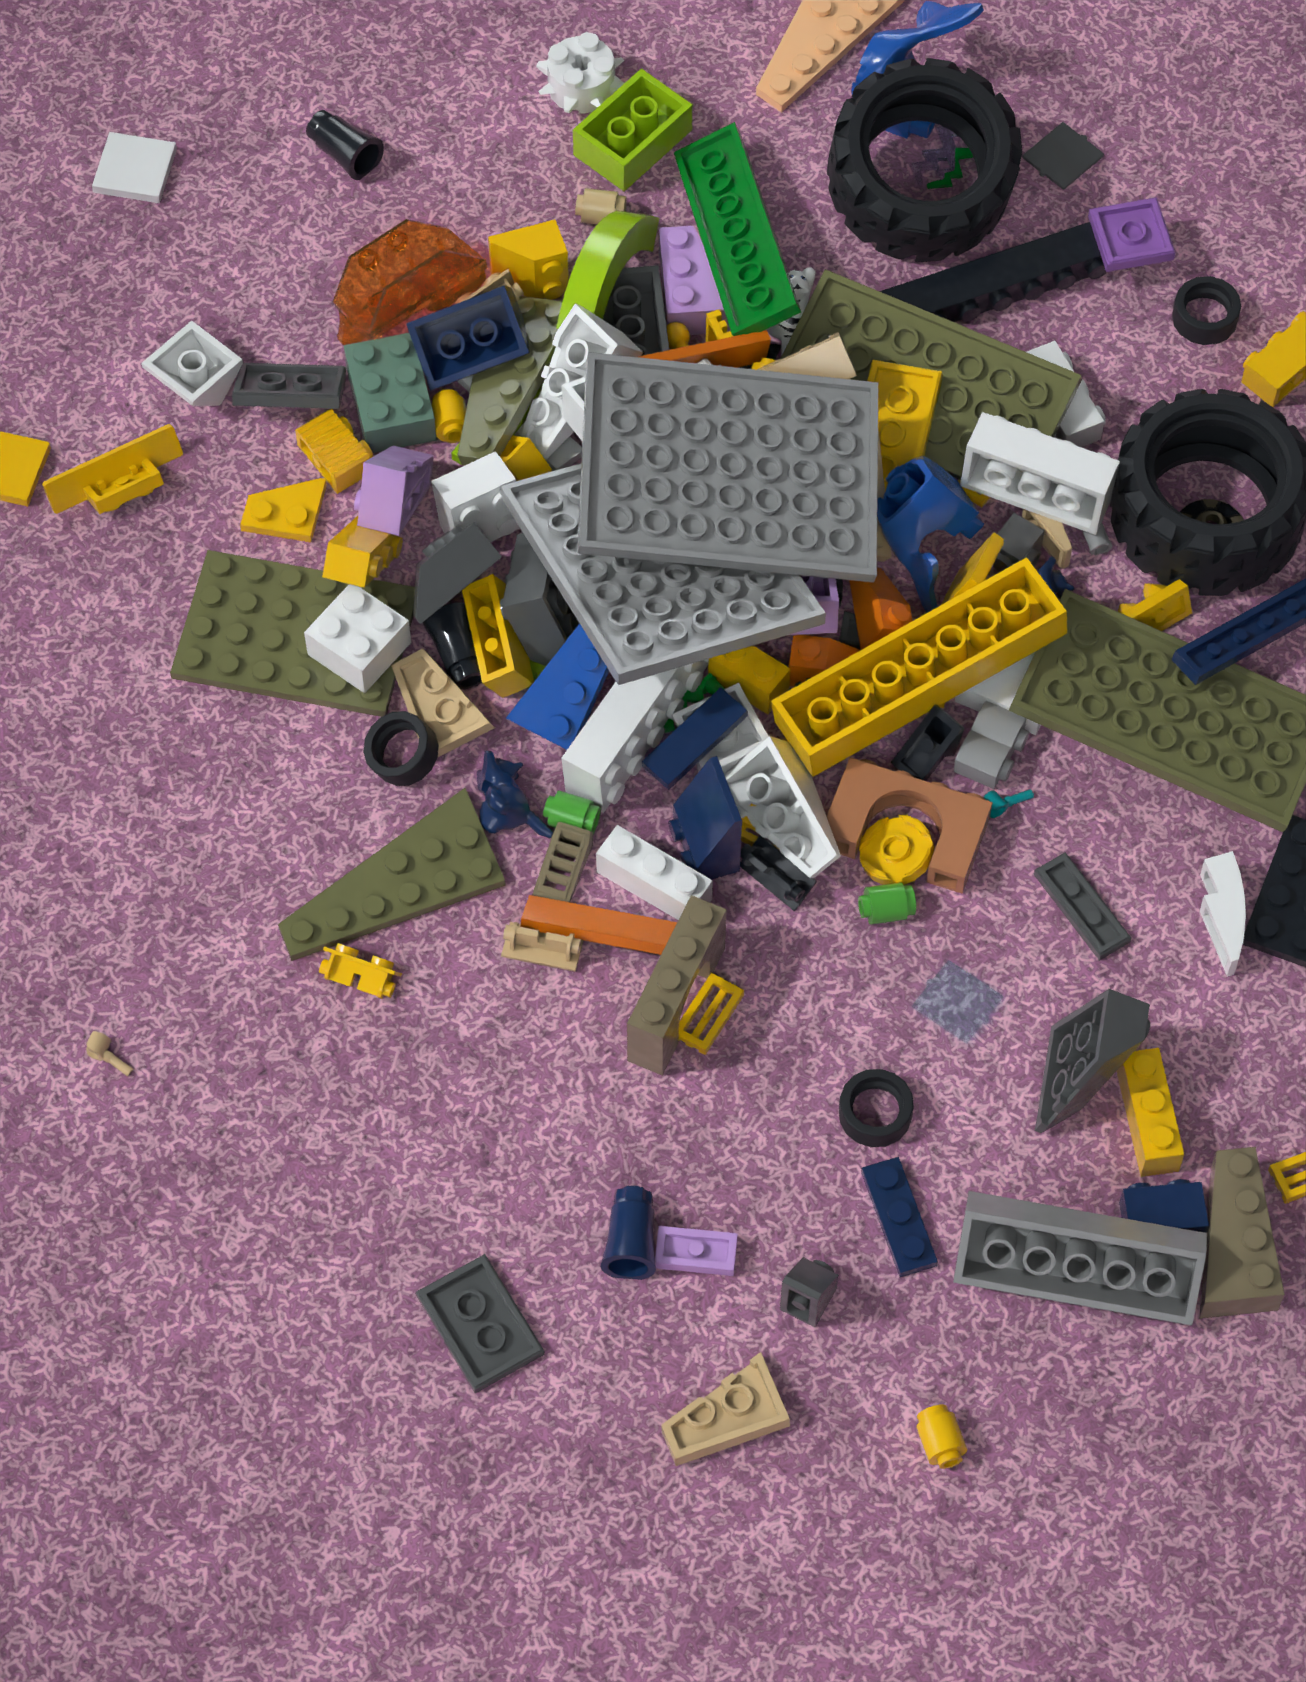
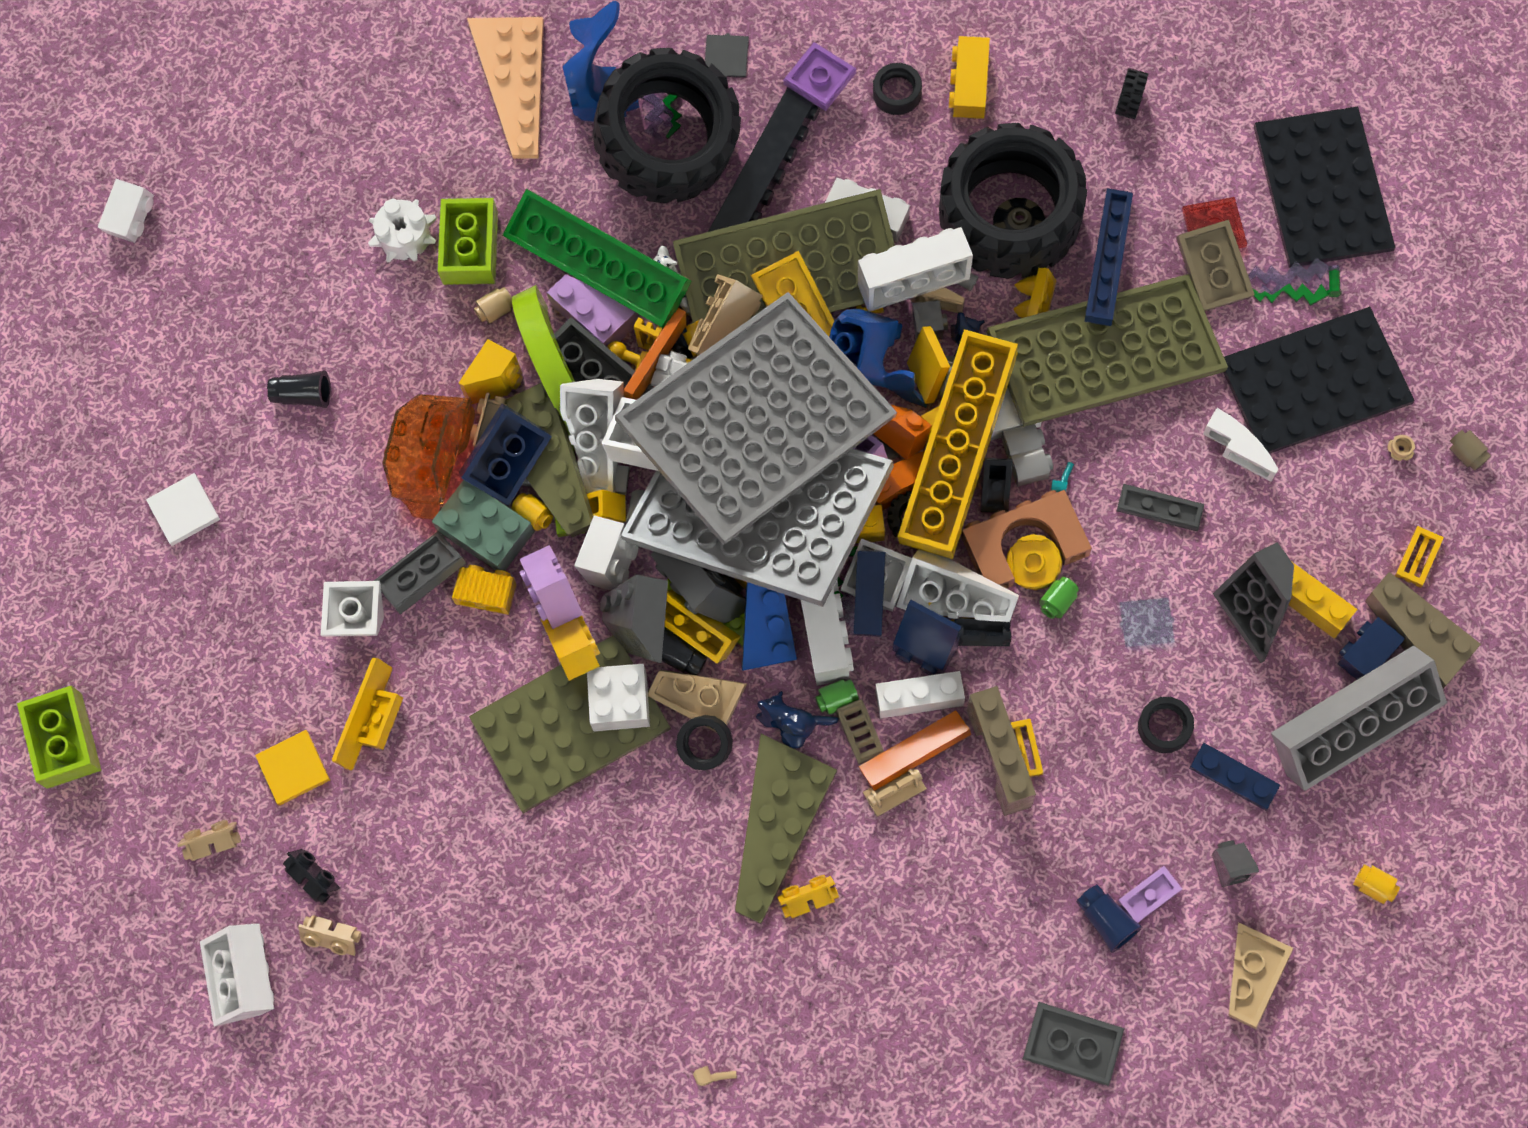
camera: 35 degrees left, 10 degrees up
(285, 511) = (489, 652): yellow wing -> none

